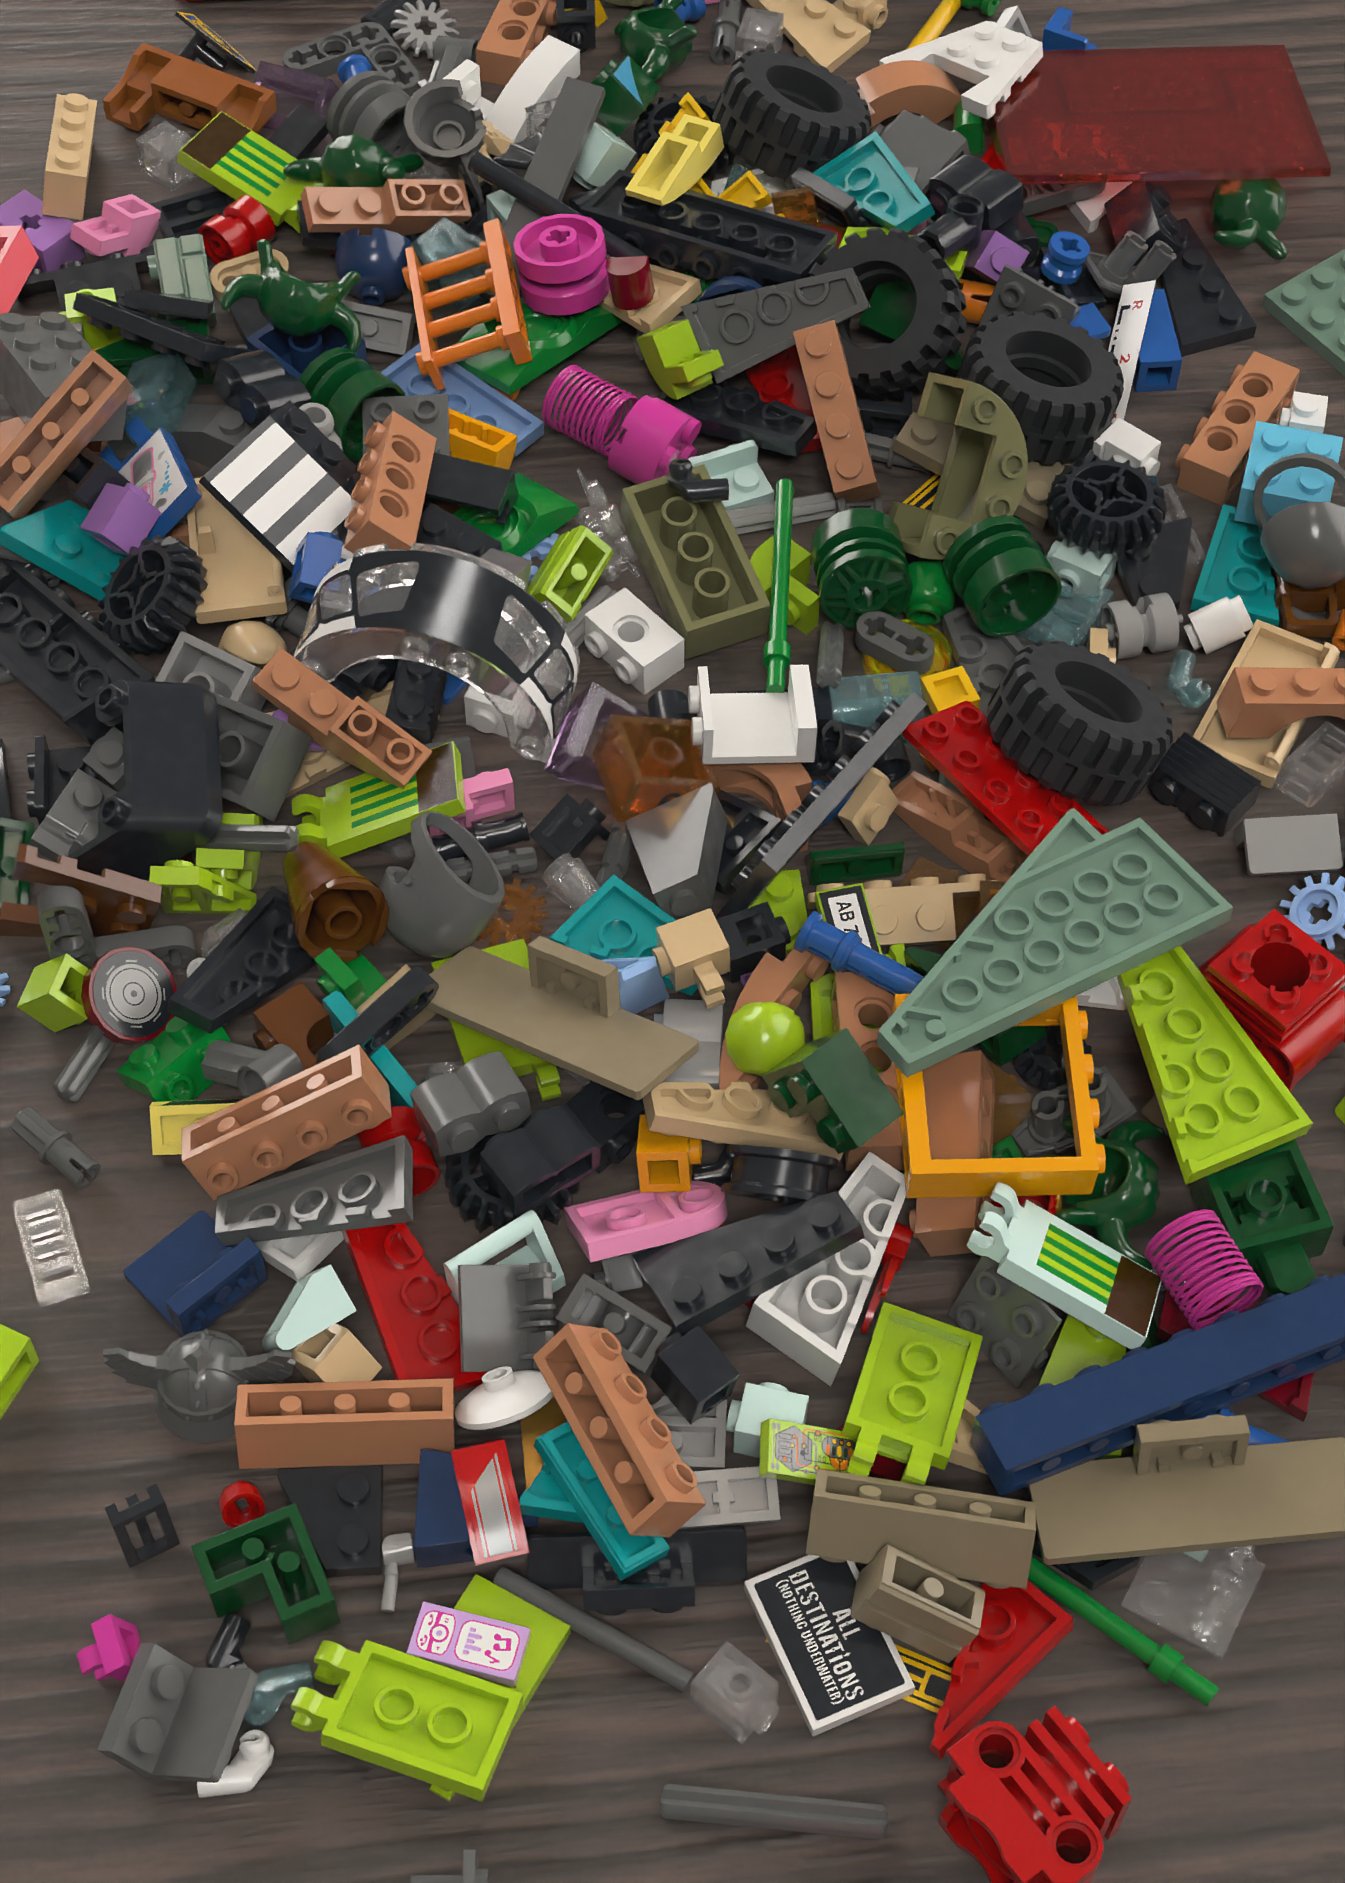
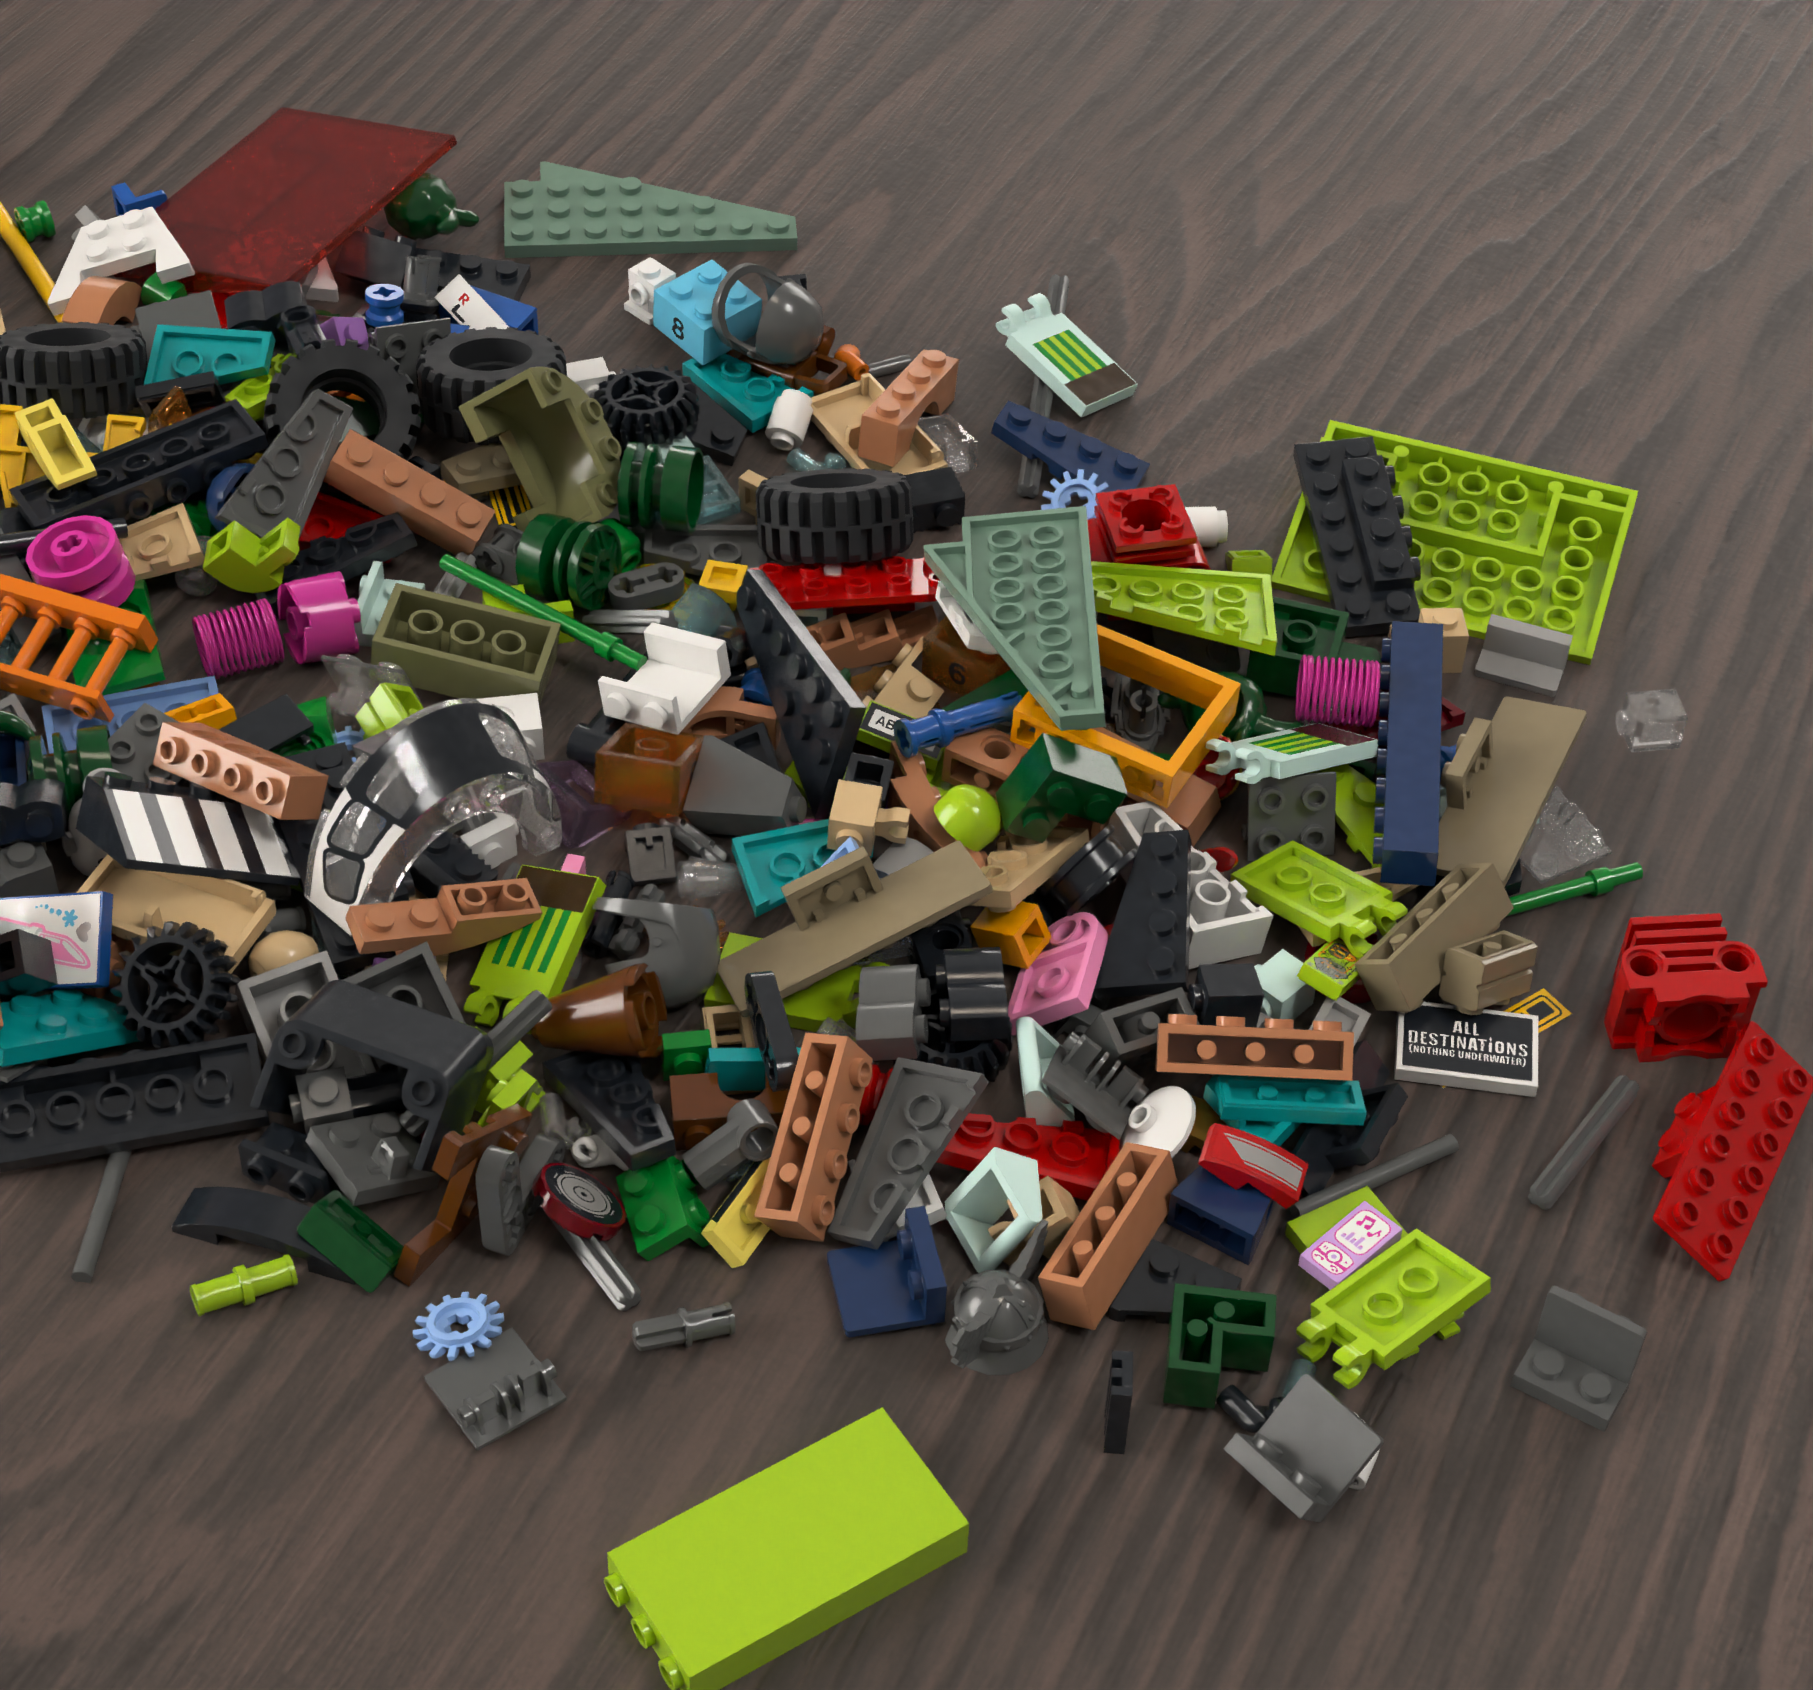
camera: 60 degrees left, 10 degrees down
(40, 1217) = (771, 1354): clear slope -> none
(55, 993) = (534, 1249): lime brick -> none
(114, 1649) = (1209, 1480): dark pink tile -> none
(121, 517) = (74, 964): medium lavender brick -> none
(229, 1508) = (1124, 1338): red hinge -> none
(312, 559) = (273, 854): blue brick -> none
(396, 1551) = (1235, 1261): light grey hand -> none
(630, 281) = (147, 538): dark red brick -> none
(694, 488) = (416, 598): black arm -> none
(736, 1693) = (1484, 1113): clear brick -> none
(1013, 1637) = (1554, 971): red wing -> none
(1147, 624) = (755, 448): light grey wheel -> none
(1222, 442) = (615, 317): nougat brick -> none
(1290, 844) = (1010, 484): light grey panel -> none

